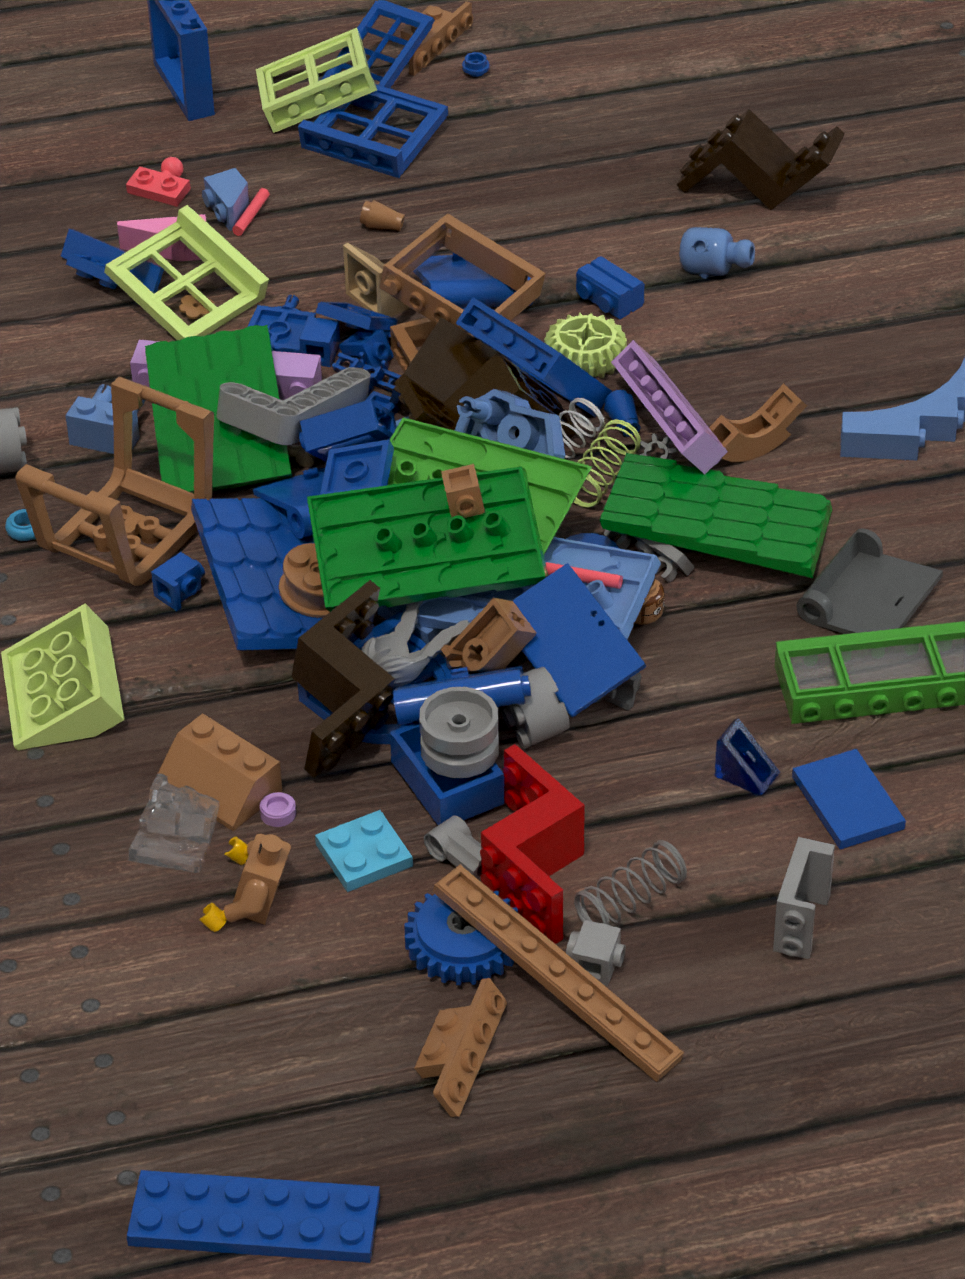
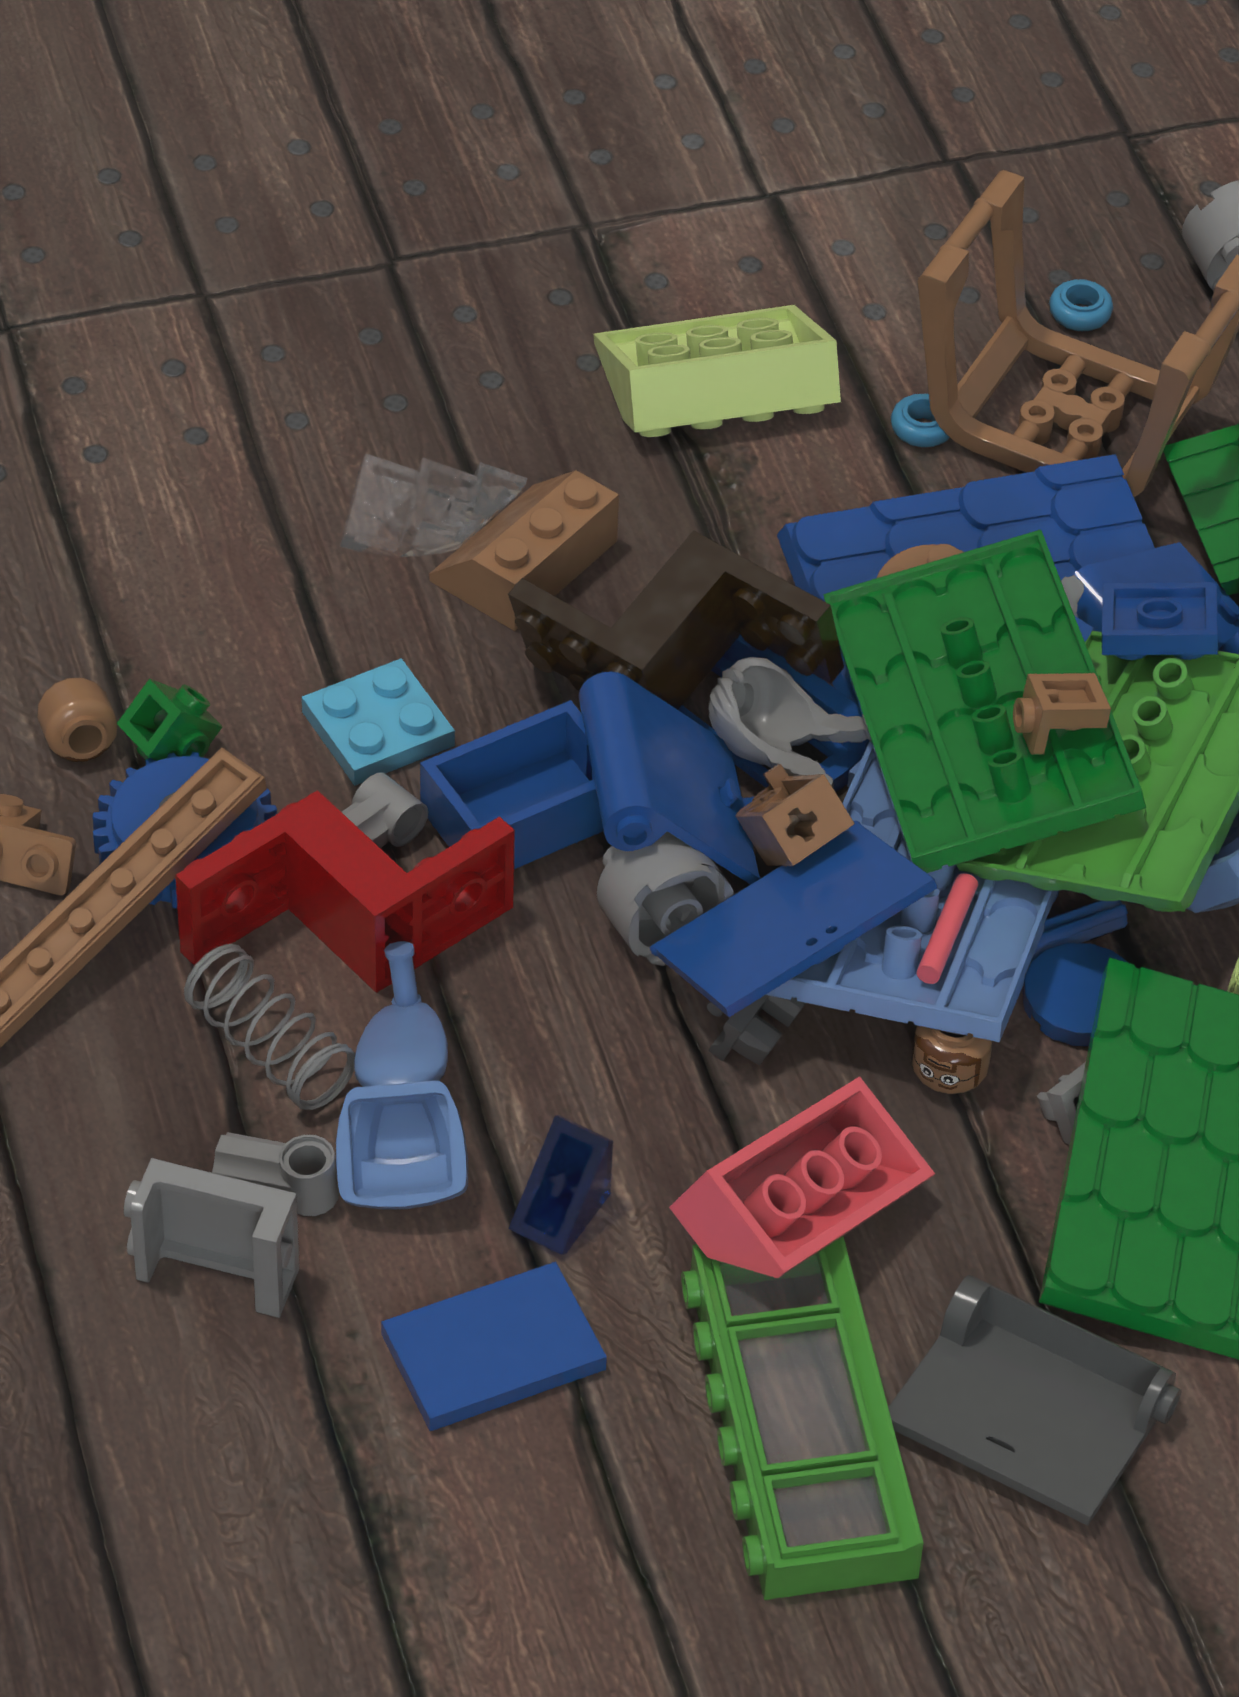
camera: 85 degrees right, 5 degrees up
(118, 589) = (913, 431): none -> dark azure piece
(177, 580) = (951, 463): blue brick -> none
(261, 876) = (298, 584): medium nougat torso -> none
(277, 809) = (466, 622): lavender tile -> none
(365, 990) = (77, 719): none -> medium nougat head
(392, 936) = (169, 721): none -> green brick
(459, 732) = (526, 752): light grey wheel -> none
(597, 949) = (139, 986): light grey brick -> none
(717, 818) = (401, 1130): none -> medium blue piece
(736, 884) = (299, 1166): none -> light grey piece
(753, 652) = (802, 1184): none -> coral slope

